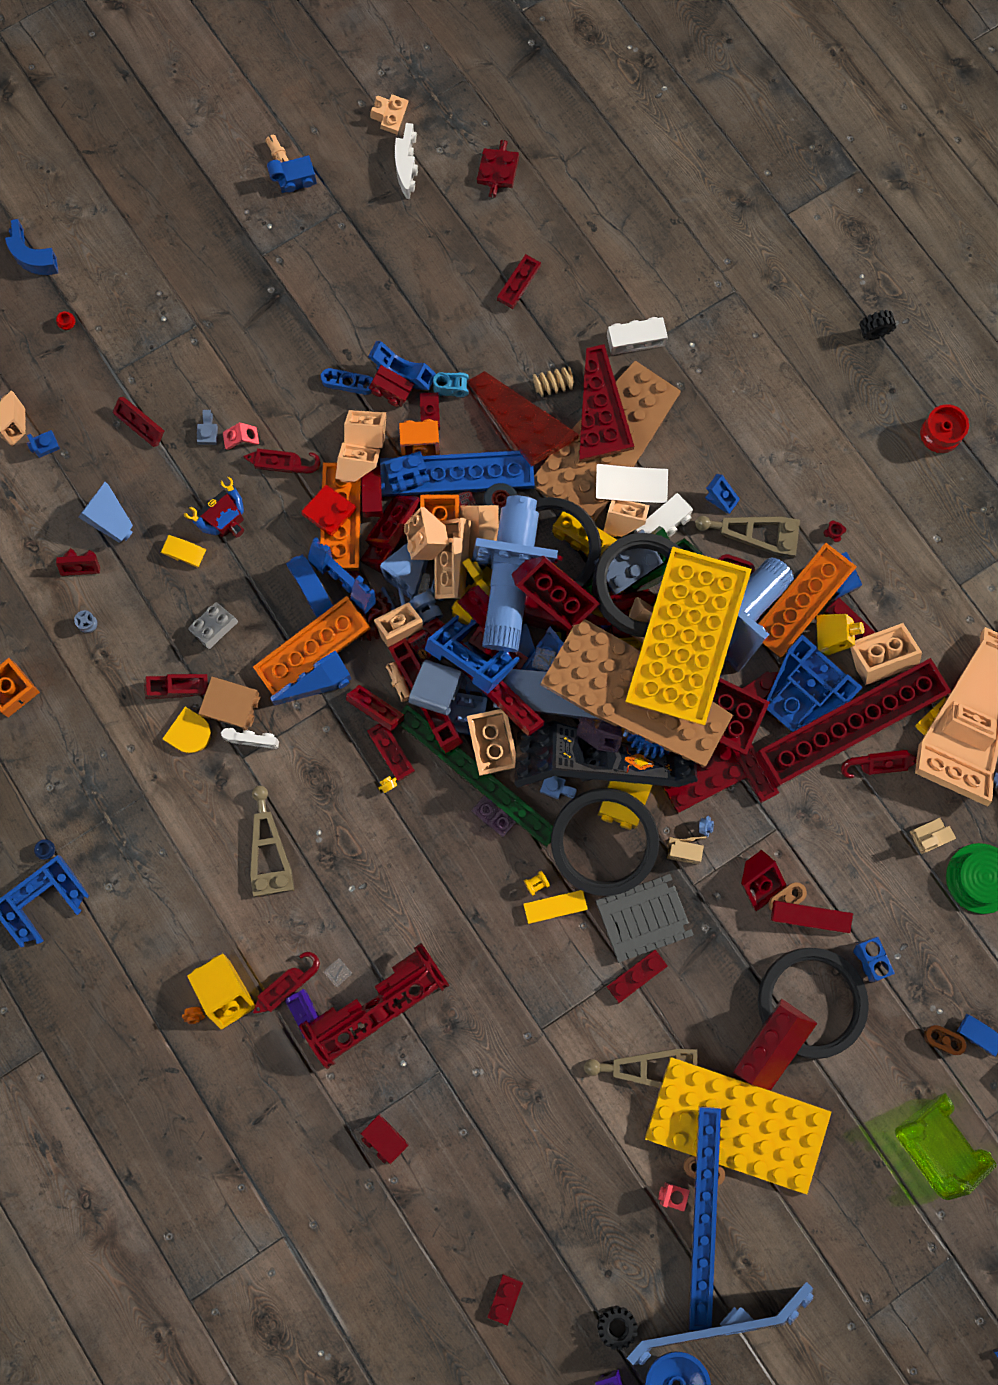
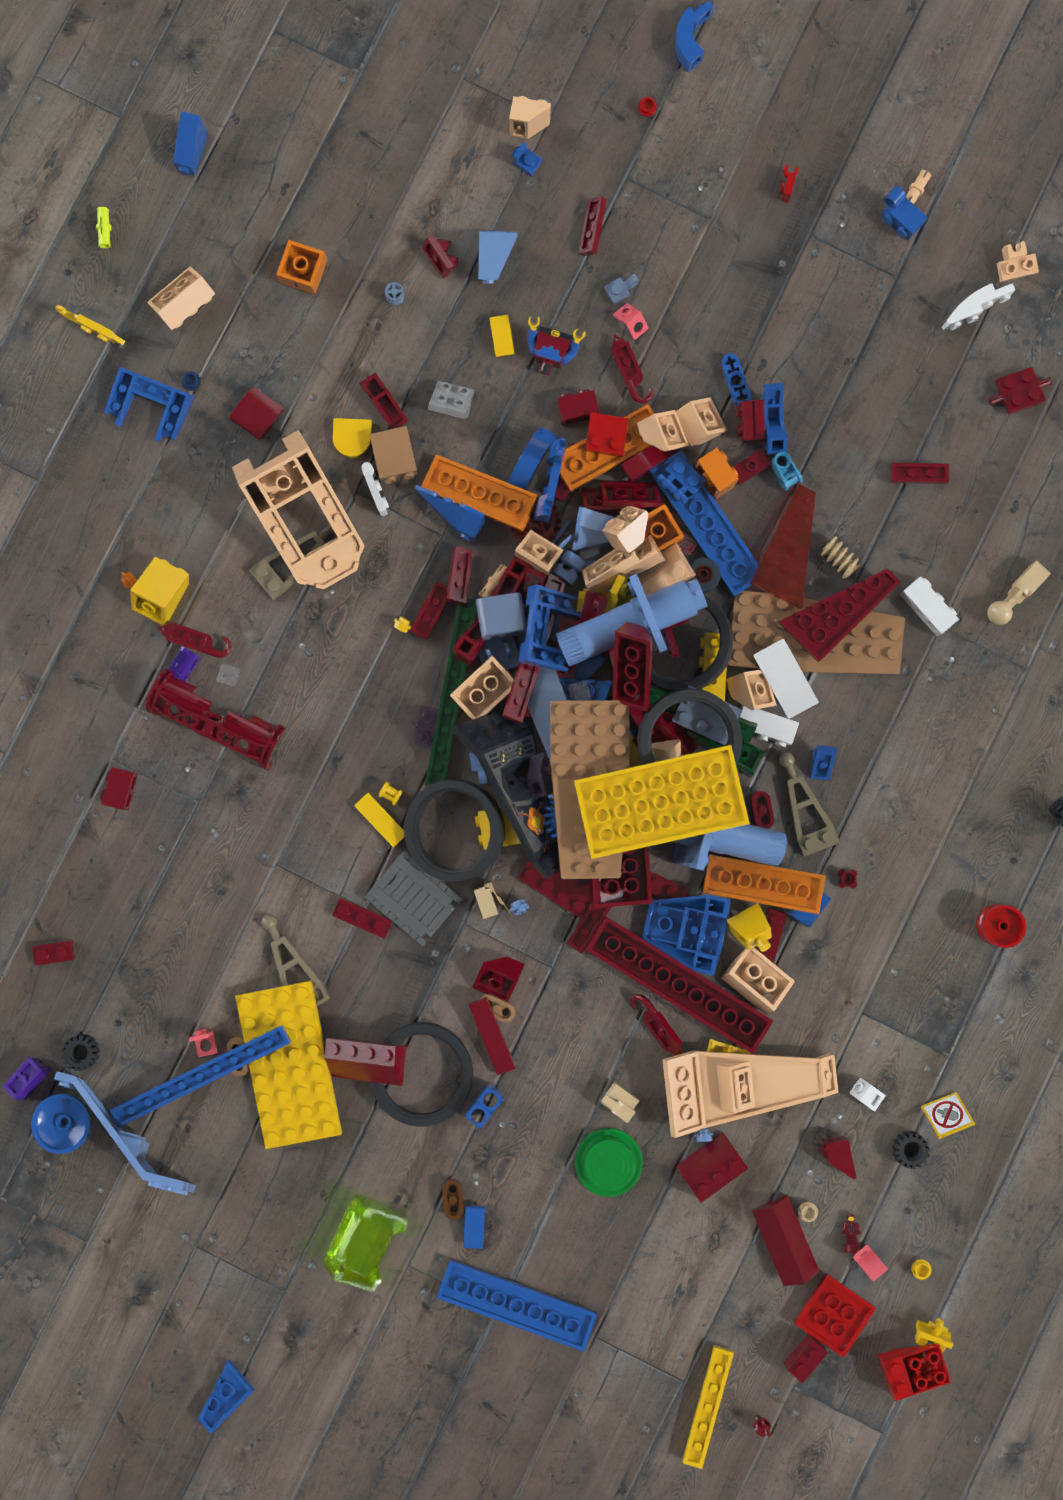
camera: 60 degrees right, 10 degrees up
(113, 806) = (256, 413): none -> dark red slope
(196, 812) = (282, 482): none -> light nougat bracket
(210, 248) = (787, 187): none -> red plate
(287, 522) = (577, 406): none -> dark red brick
(665, 255) = (1026, 584): none -> tan beam

